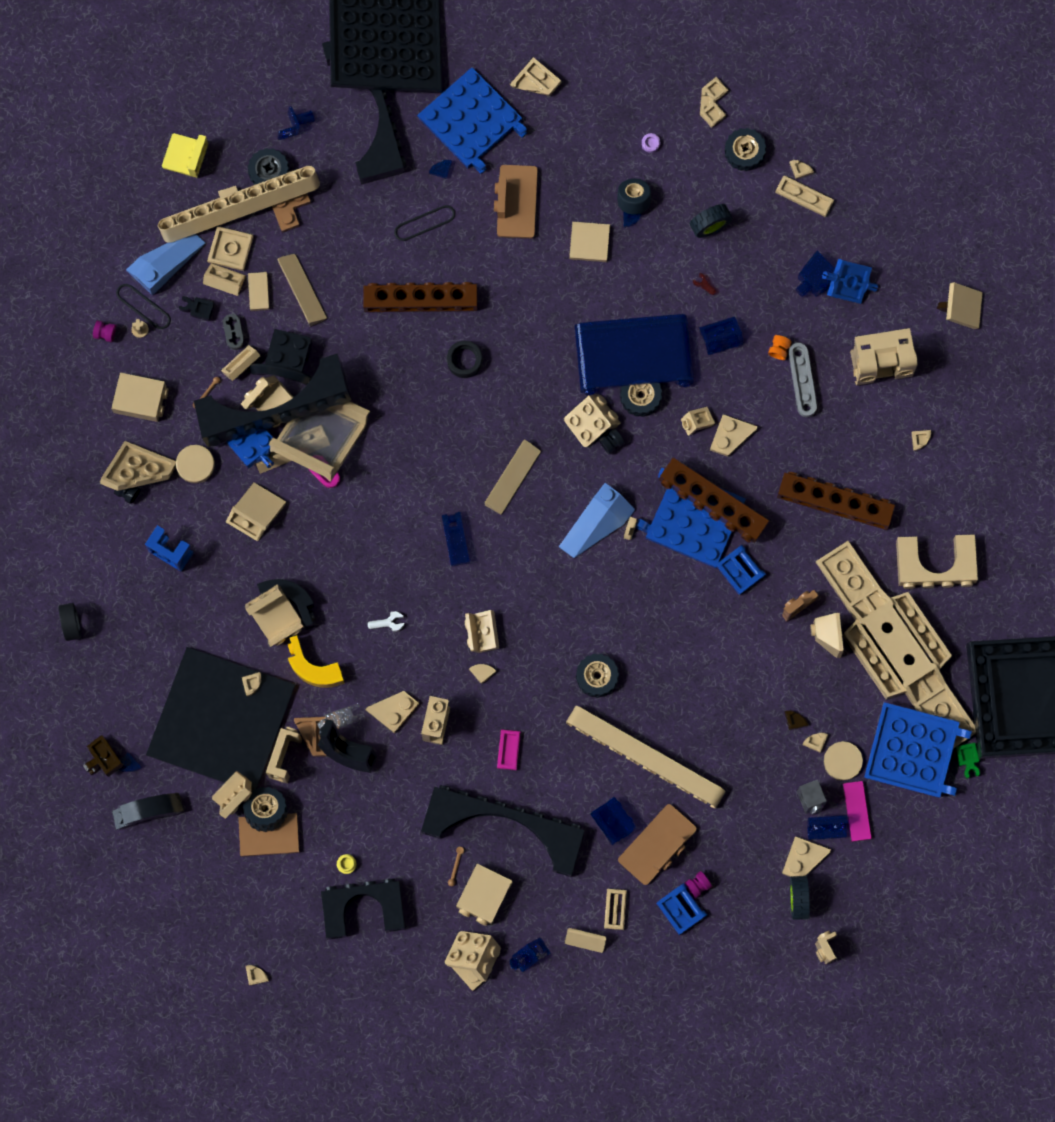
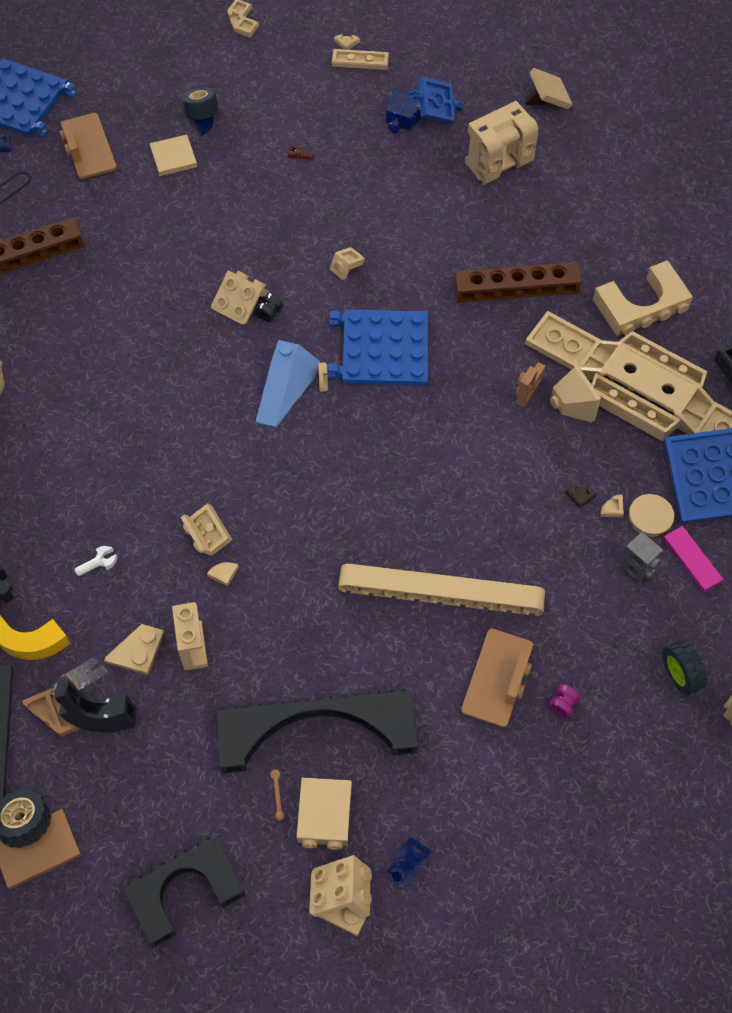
camera: 25 degrees left, 15 degrees down
(274, 768) = (16, 763): tan panel -> none
(346, 864) = (144, 844): light yellow plate -> none
(455, 540) = (142, 453): clear blue plate -> none
(464, 345) = (93, 299): black tyre -> none
(508, 750) = (286, 642): dark pink tile -> none
(512, 477) = (179, 375): tan slope -> none
(536, 79) = (68, 48): tan wing -> none
(585, 940) = (466, 816): tan slope -> none
(601, 665) = (353, 516): black wheel -> none
(613, 821) = (438, 669): clear blue bracket -> none
(614, 926) = (490, 788): tan tile -> none
(633, 352) = (254, 225): clear blue windscreen -> none
(641, 406) = (287, 252): black wheel -> none
(650, 143) = (198, 64): lavender tile -> none
(676, 912) = (554, 742): blue plate -> none
(709, 490) = (359, 311): reddish brown brick -> none
(711, 220) = (282, 95): black wheel -> none
(721, 335) = (337, 186): clear blue bracket -> none
(730, 435) = (385, 264): tan wing -> none
(736, 573) = (451, 380): blue plate -> none
(749, 159) = (288, 40): black wheel -> none
(779, 347) = (397, 176): orange wheel -> none
(802, 380) = (432, 196): light grey plate -> none
(803, 857) = (662, 627): tan wing -> none
(827, 827) = (671, 584): clear blue bracket -> none
(920, 439) = (568, 207): tan tile -> none

